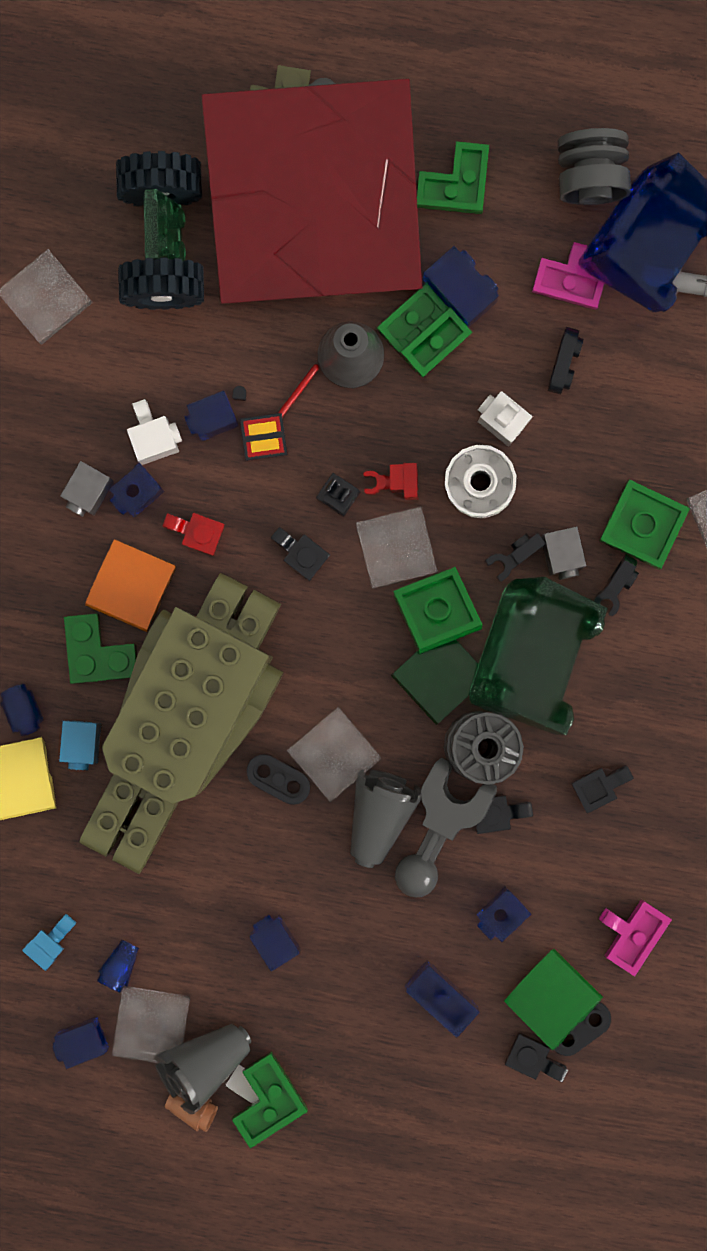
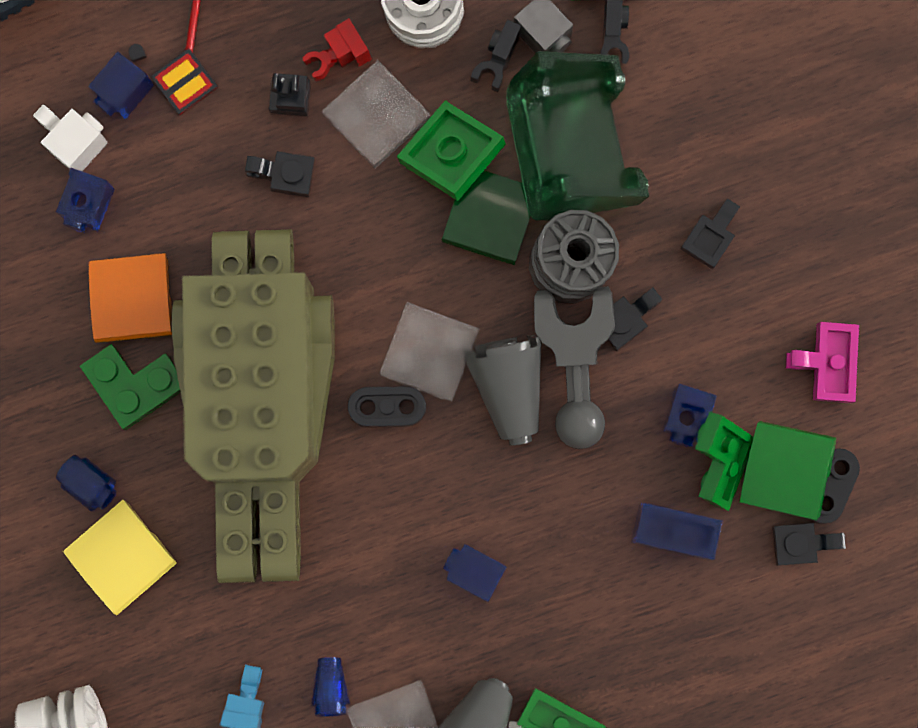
camera: 30 degrees left, 5 degrees down
(80, 744) = (165, 483): dark azure brick -> none
(86, 490) = (33, 226): flat silver brick -> none
(200, 533) = (172, 209): red plate -> none
(516, 960) = (729, 451): none -> green plate

